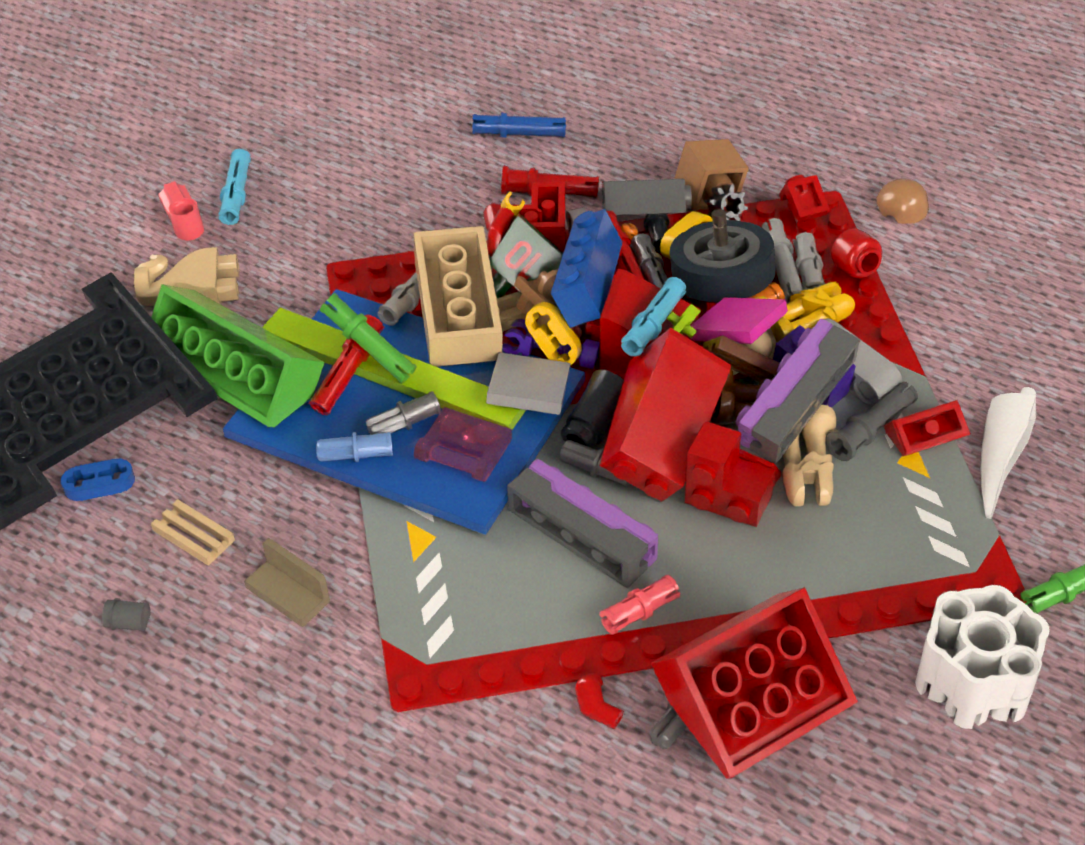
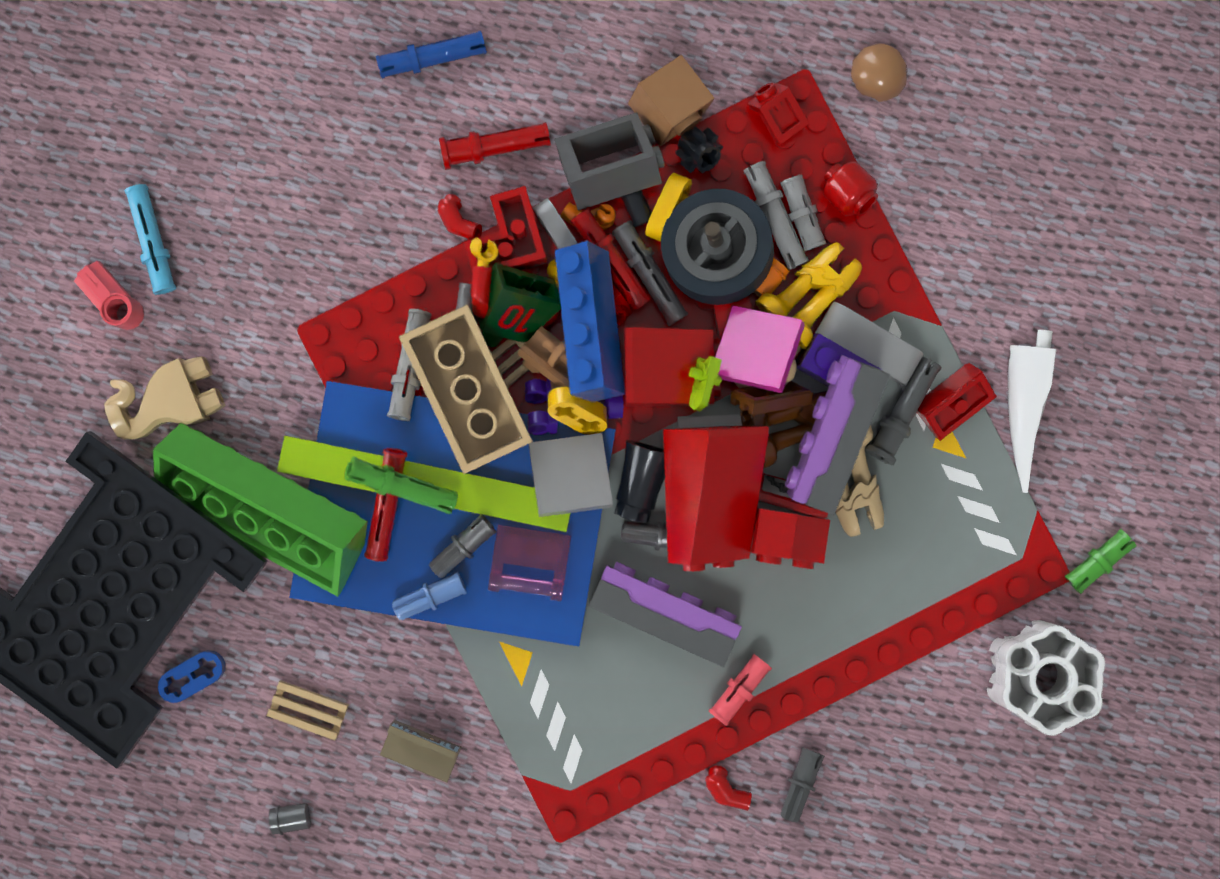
camera: 20 degrees left, 40 degrees up
(648, 324) = (671, 426): medium azure pin -> none
(756, 681) = (858, 748): red slope -> none

